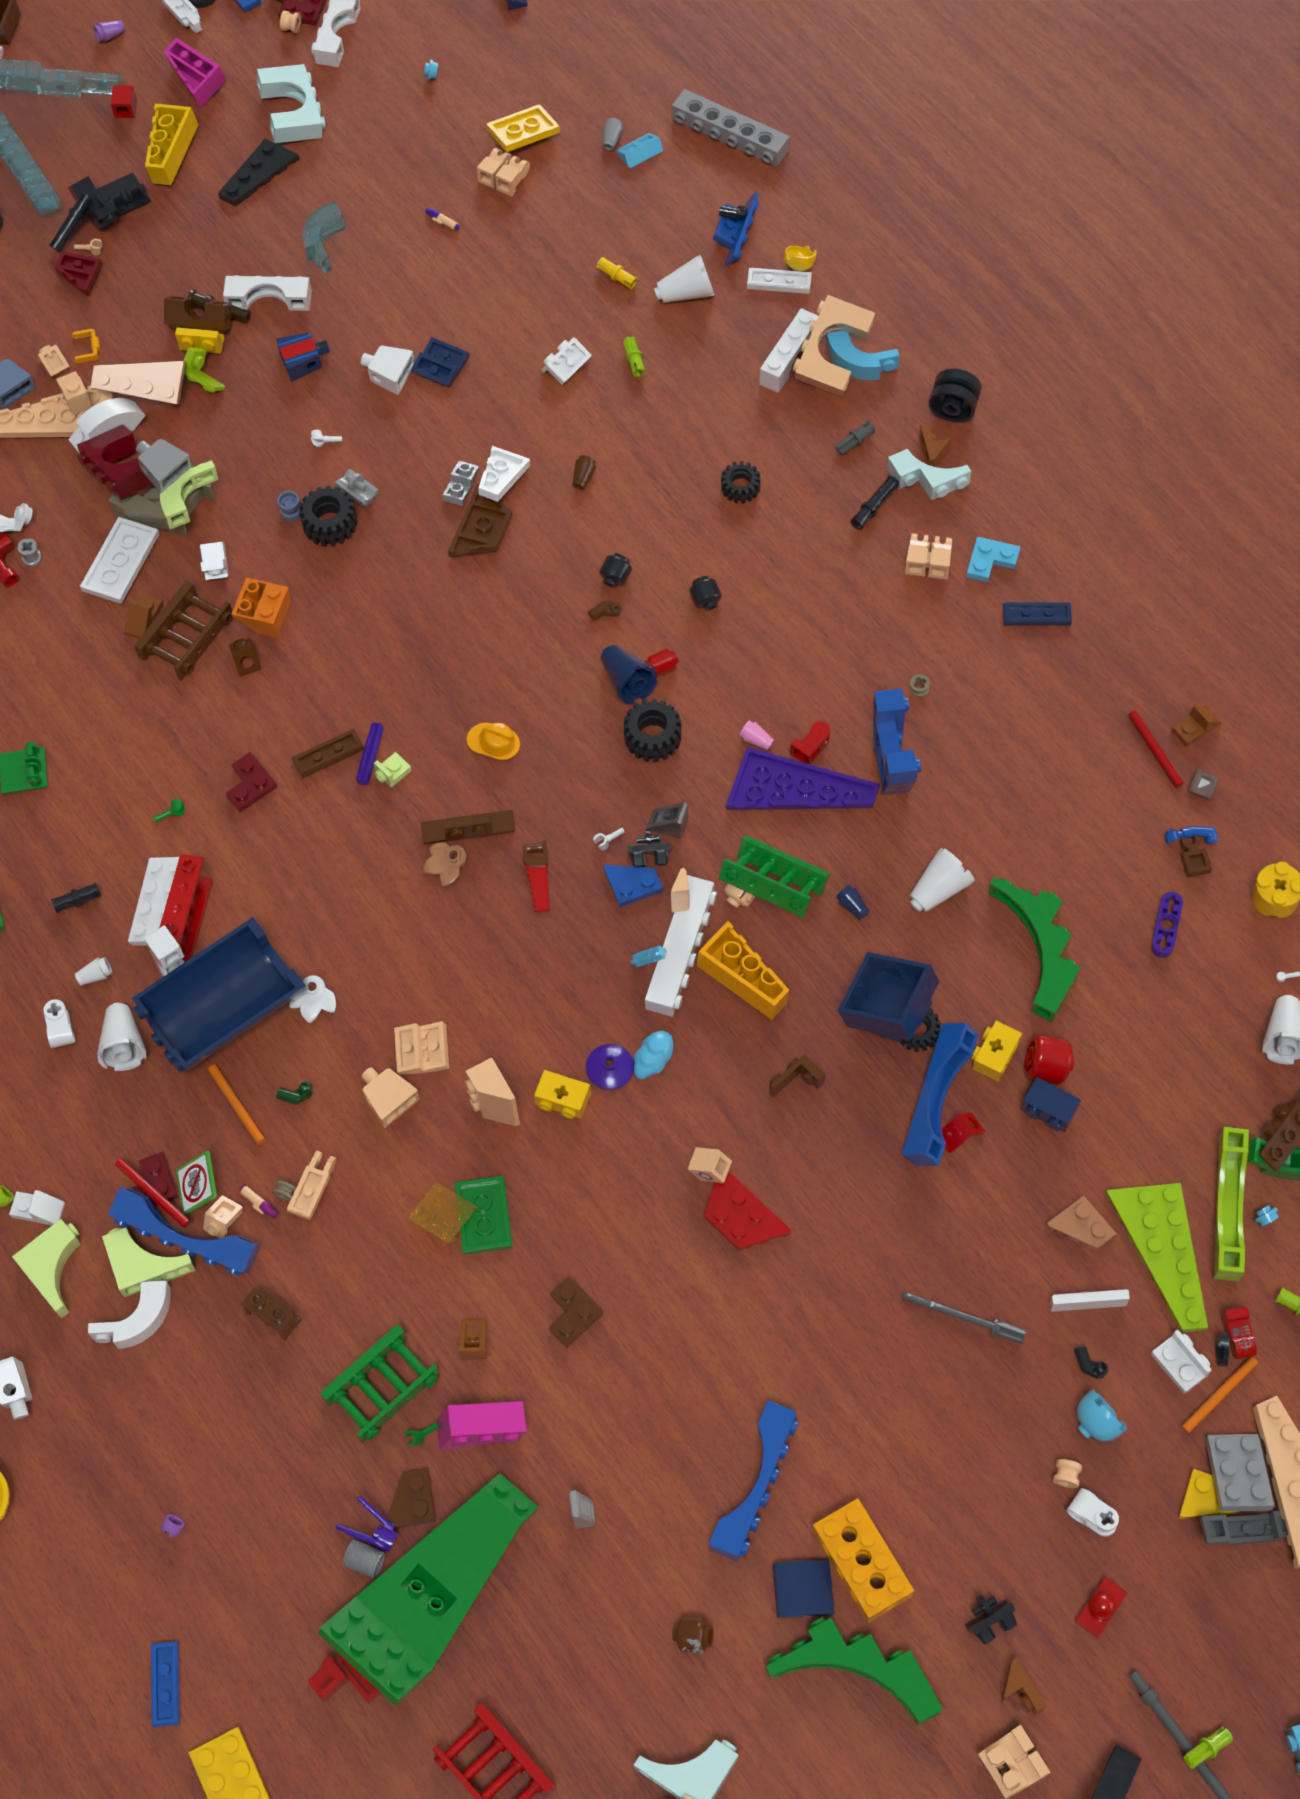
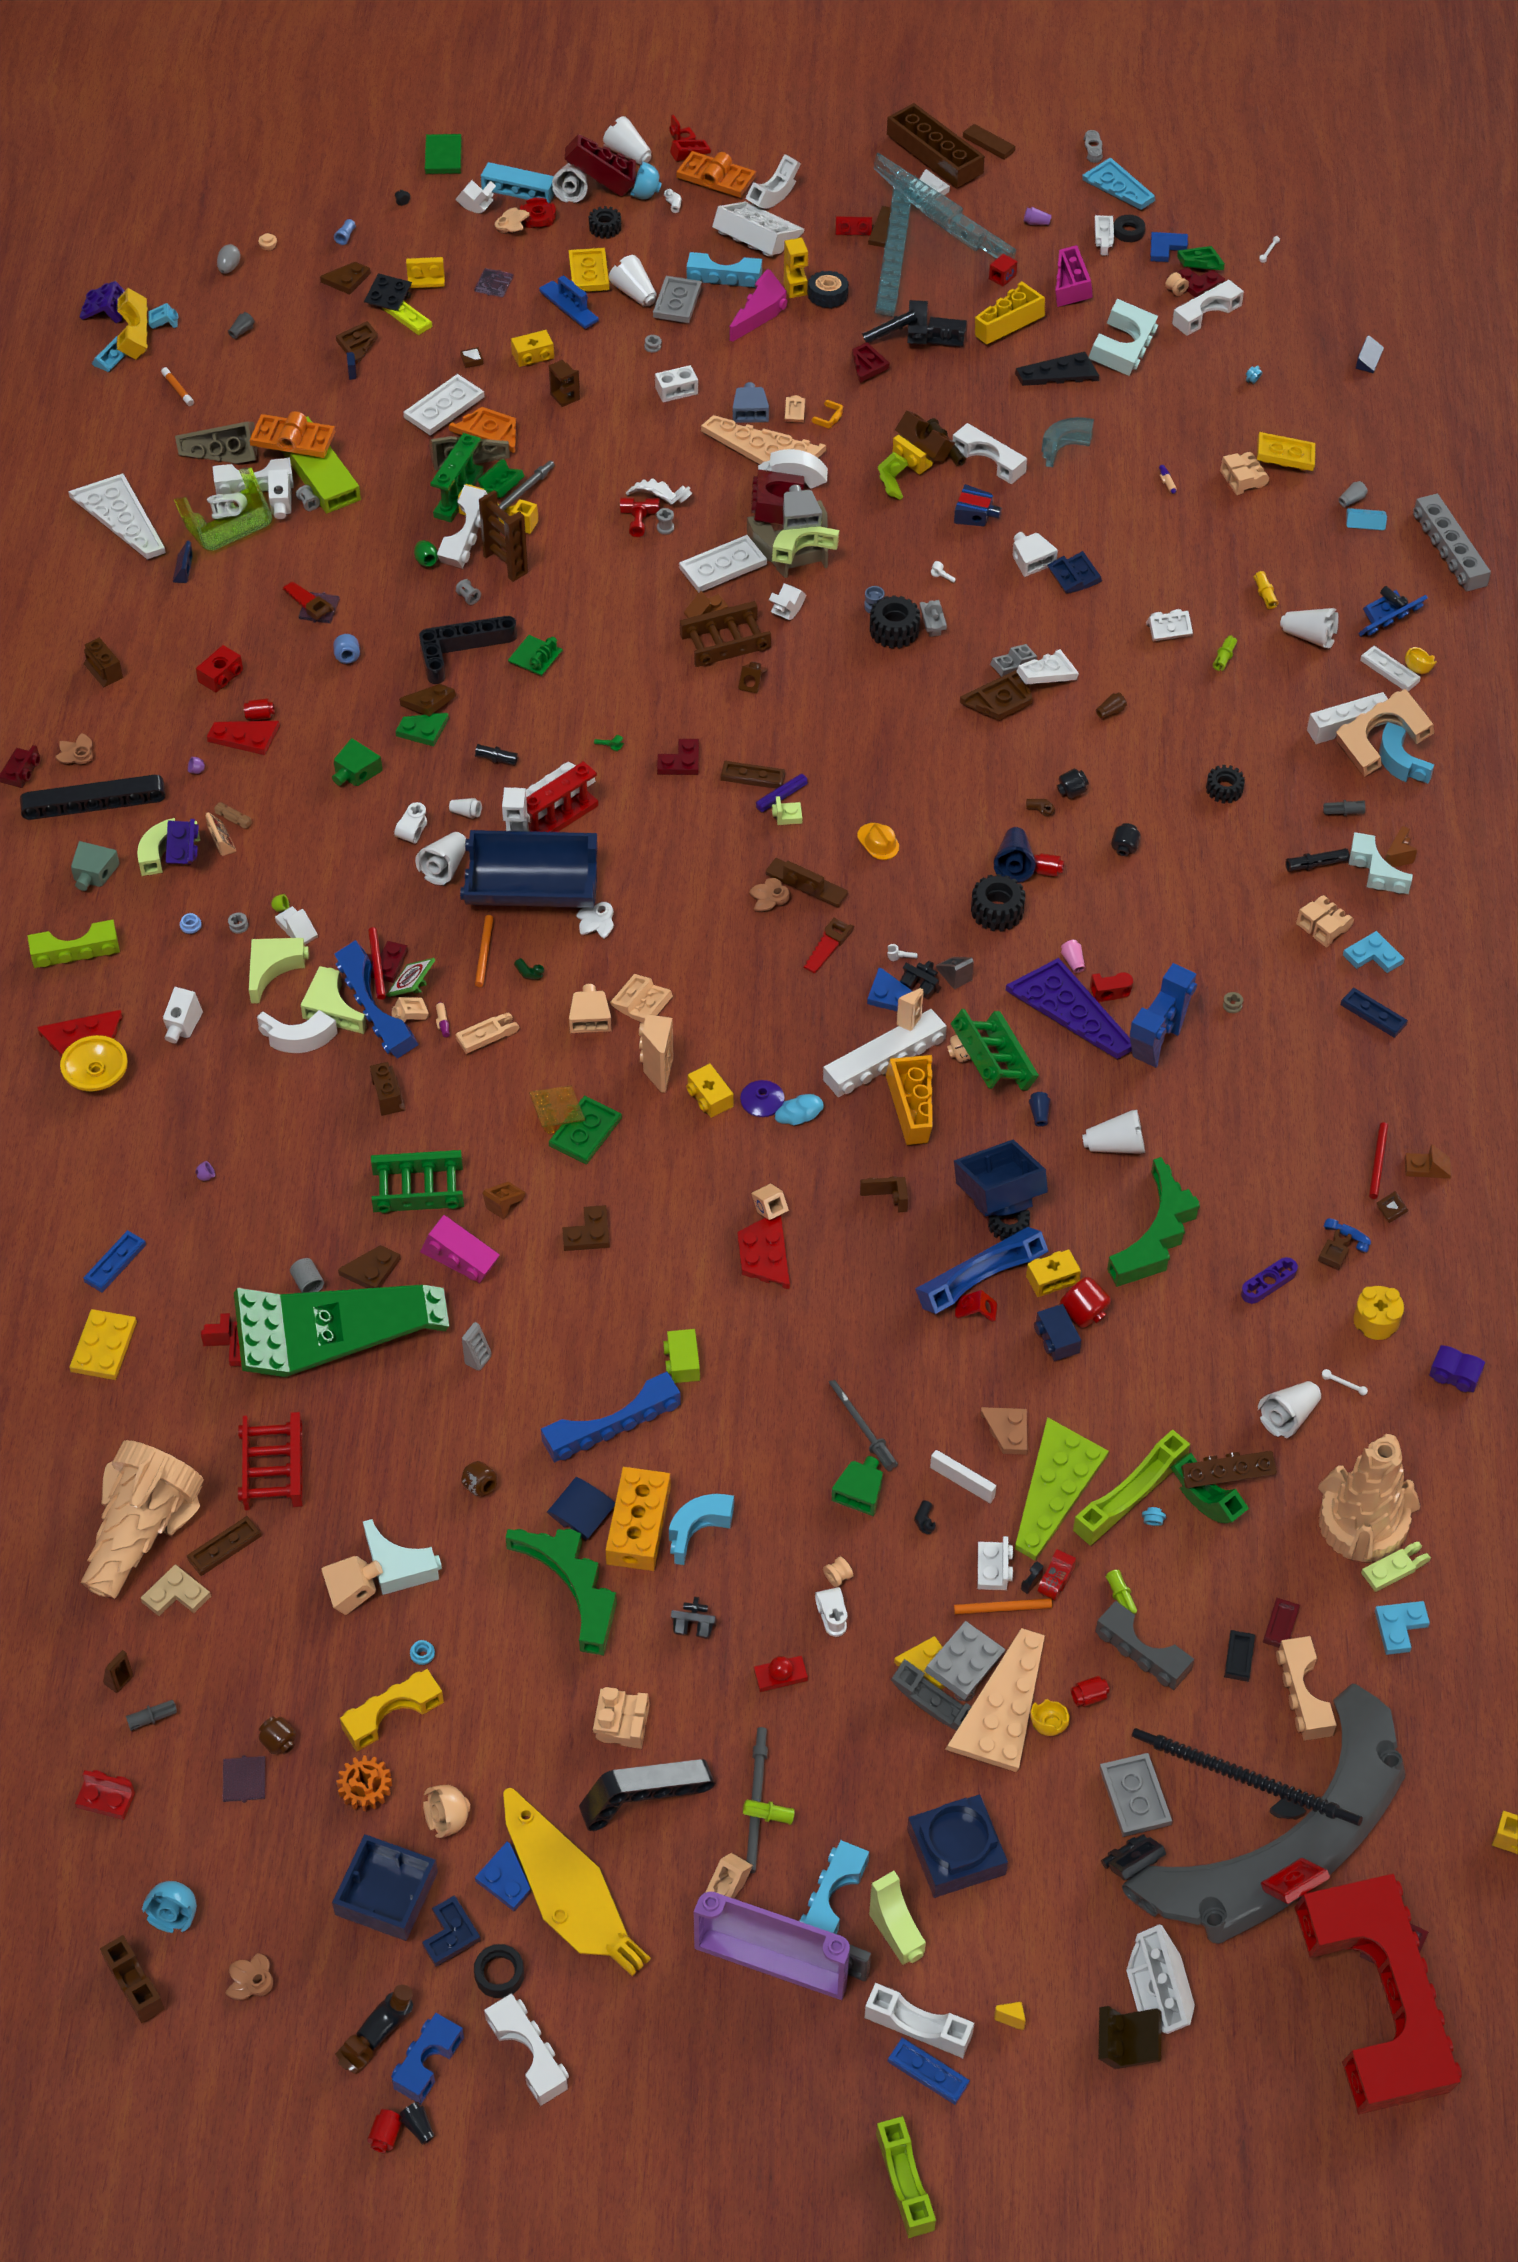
camera: 35 degrees right, 10 degrees down
(74, 393) = (788, 435): light nougat arch -> none
(94, 246) = (894, 352): light nougat hand -> none
(147, 380) = (847, 457): light nougat wedge -> none
(262, 606) = (793, 652): orange slope -> none
(284, 1190) = (464, 1021): dark tan bush -> none
(382, 1537) = (331, 1273): dark purple plant -> none
(418, 1435) = (411, 1232): green hand -> none
(648, 956) = (853, 1042): medium azure axle -> none
(762, 1372) = (683, 1356): none -> lime brick
(912, 1504) = (697, 1514): none -> medium azure arch
(955, 395) = (1449, 822): black wheel -> none
(1016, 1377) = (859, 1486): none -> green torso
(1017, 1682) = (672, 1674): dark orange slope -> none
(1098, 1418) = (895, 1552): medium azure cylinder -> none

